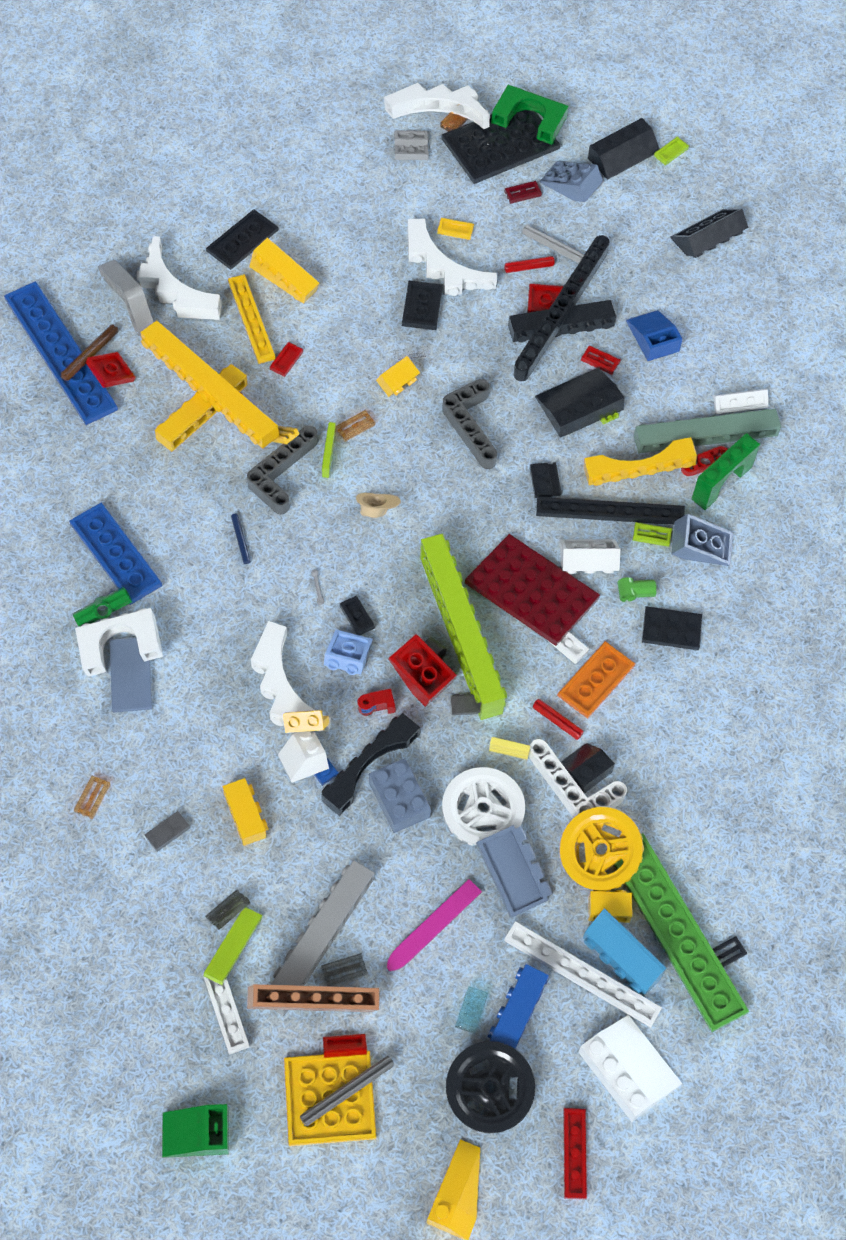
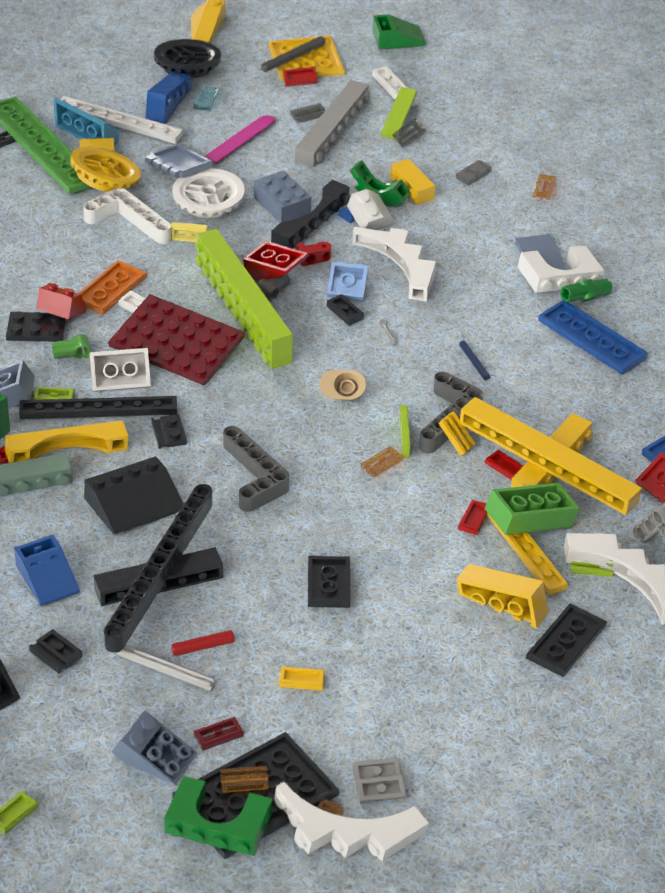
camera: 175 degrees right, 20 degrees down
(238, 336) = (532, 508): none -> bright green brick
(283, 796) = (390, 193): none -> green arch
(305, 721) = (373, 217): yellow bracket -> none
(312, 998) = (328, 77): nougat brick -> none
(398, 376) = (343, 499): yellow brick -> none
(439, 266) = (317, 623): white arch -> none
(508, 143) = (244, 778): none -> clear orange tile
(542, 296) = (179, 606): red tile -> none
(558, 719) = (146, 258): red axle -> none
(574, 1153) = (121, 45): red tile -> none
(588, 766) = (118, 225): black slope -> none
(599, 362) = (109, 550): red tile -> none
(623, 148) = (84, 800): black slope -> none
(629, 1067) = (82, 77): white slope -> none
(644, 266) = (55, 651): none -> black plate
(647, 642) = (60, 301): none -> slope

